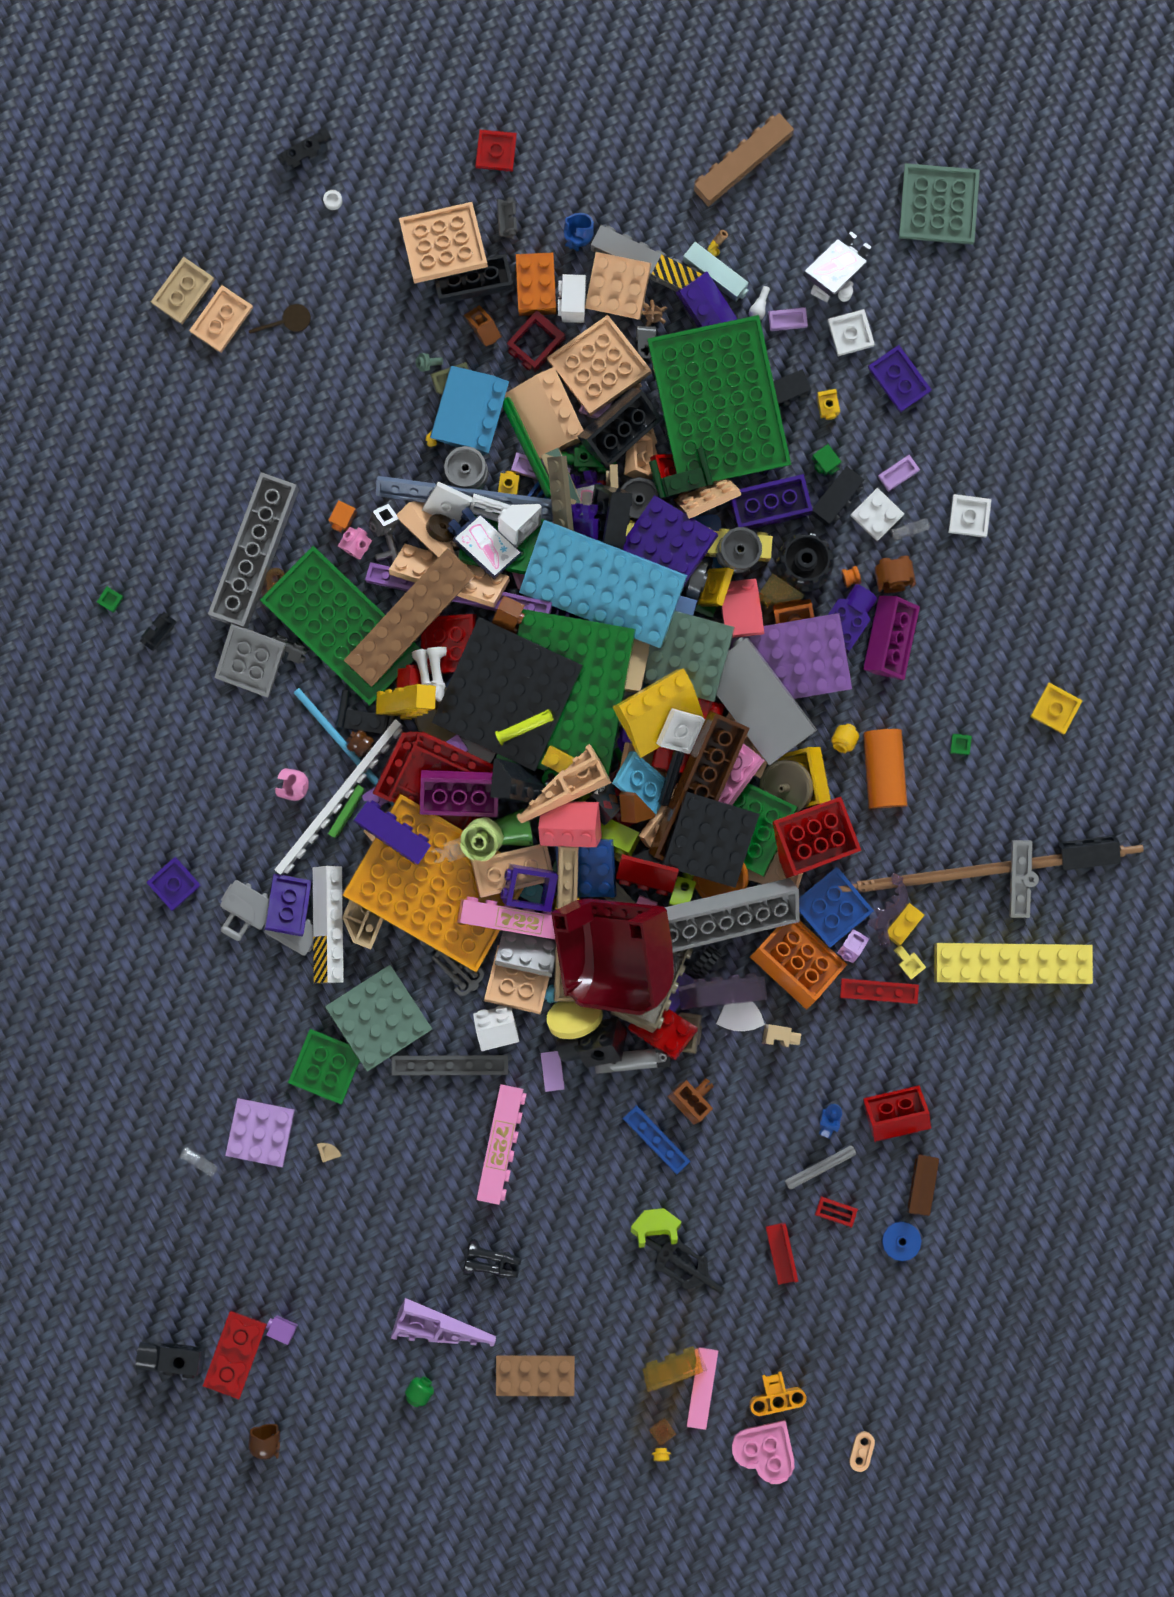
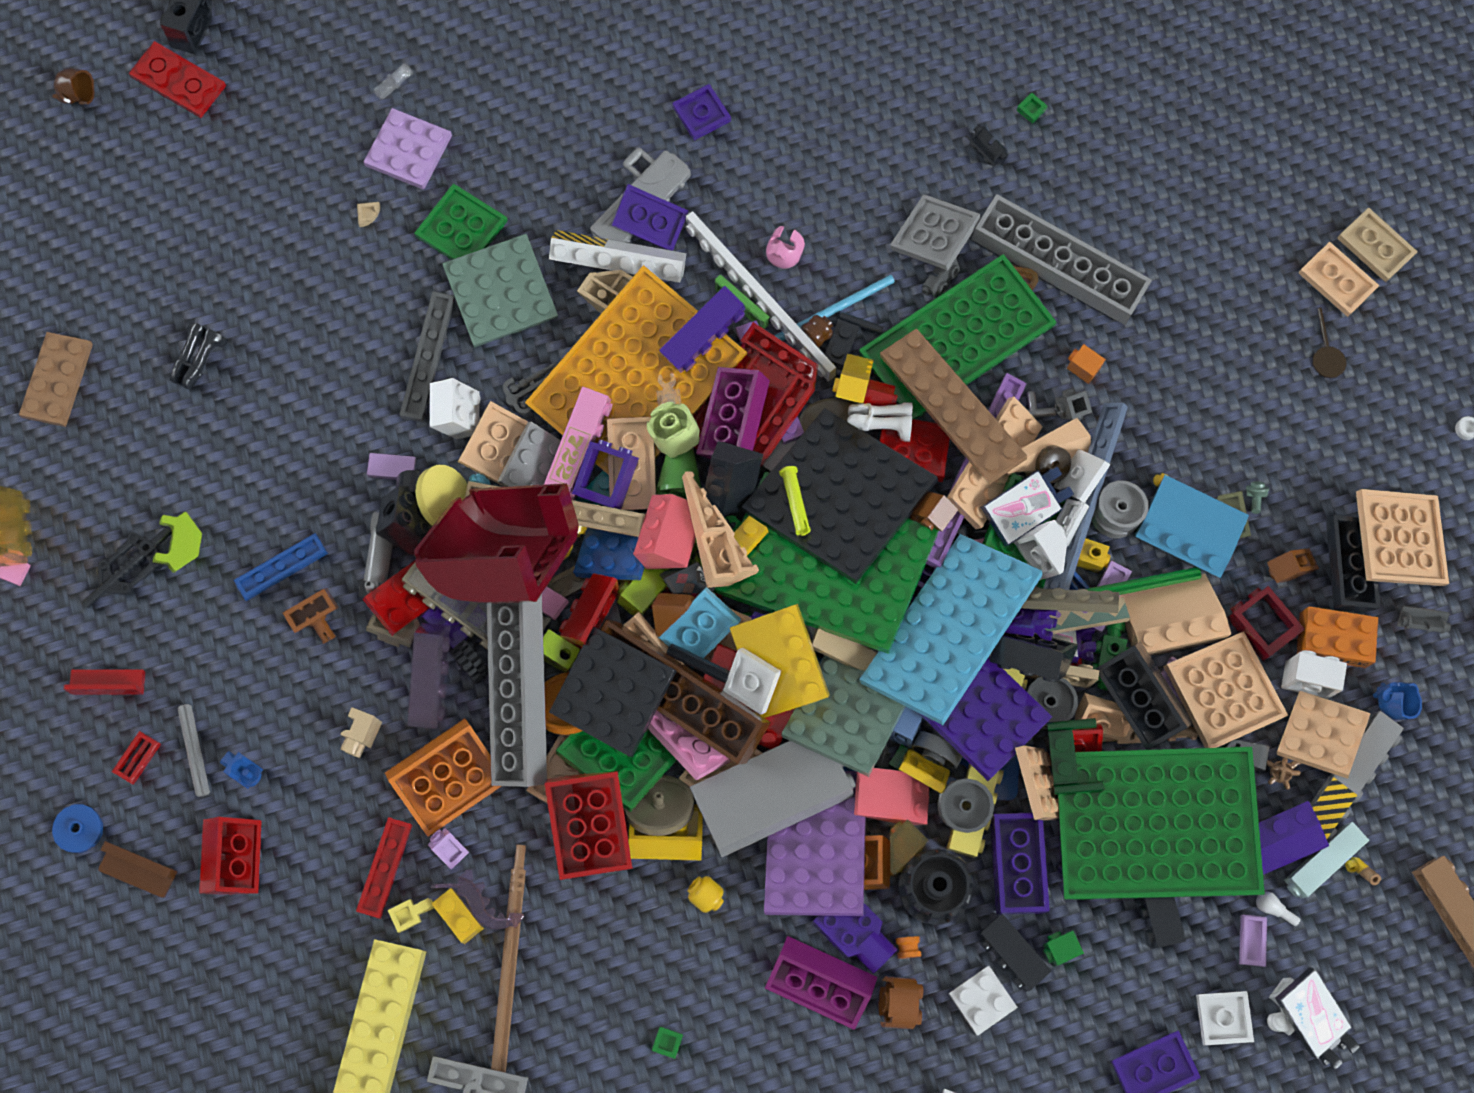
camera: 95 degrees right, 10 degrees down
(281, 1329) = (188, 127): medium lavender brick -> none
(355, 542) = (1052, 370): bright pink brick -> none
(419, 1391) = (76, 251): green head -> none
(422, 1322) = (147, 277): lavender wedge -> none
(500, 1144) = (323, 391): bright pink brick -> none
(740, 1017) = (395, 695): white sticker -> none
(825, 411) = (1145, 967): yellow brick -> none
(833, 912) = (496, 830): blue plate -> none
(885, 768) = (656, 938): orange brick -> none
(898, 473) = (1031, 1041): lavender tile -> none
(910, 529) = (956, 1039): clear axle -> none

